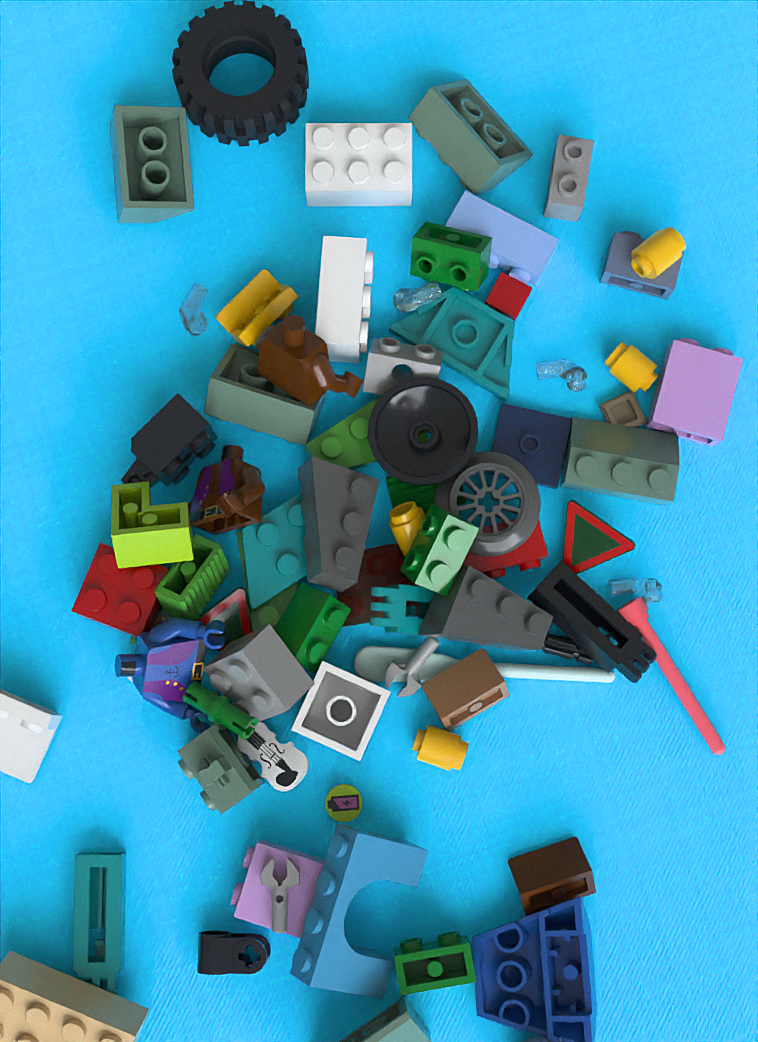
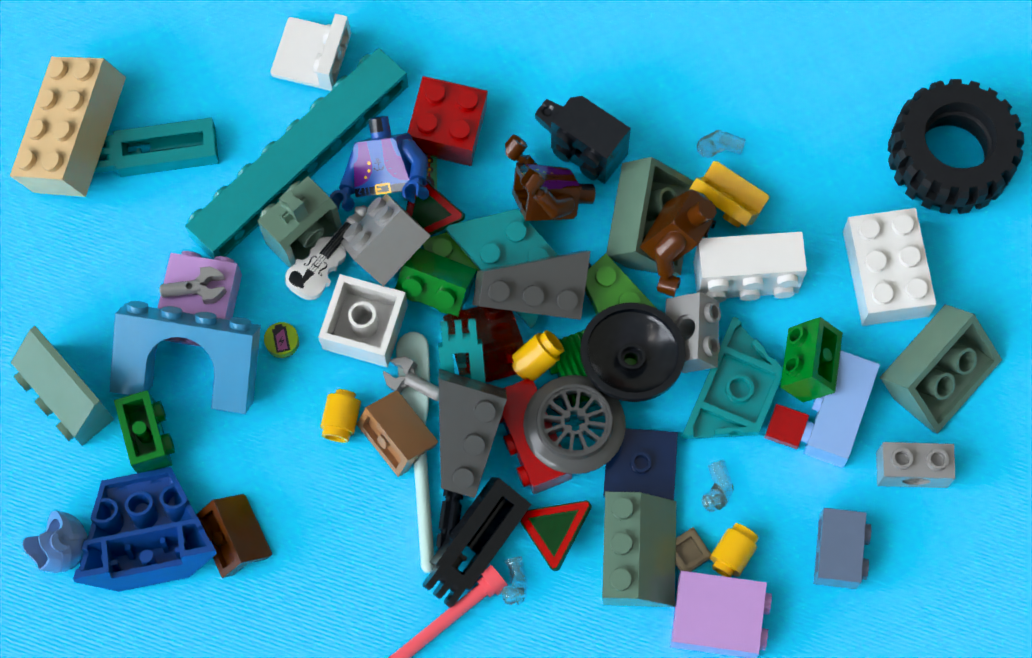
camera: 85 degrees right, 10 degrees down
(134, 762) = (298, 153): none -> teal brick
(148, 532) = (501, 122): lime brick -> none
(150, 163) = (850, 81): sand green slope -> none
(193, 582) = (465, 175): bright green brick -> none
(220, 710) = (349, 210): green pin -> none
(224, 952) = (139, 258): black piece -> none
(412, 298) = (765, 332): clear light blue arm -> none
(439, 549) = (519, 373): brick -> none
(657, 253) = (848, 550): yellow brick -> none

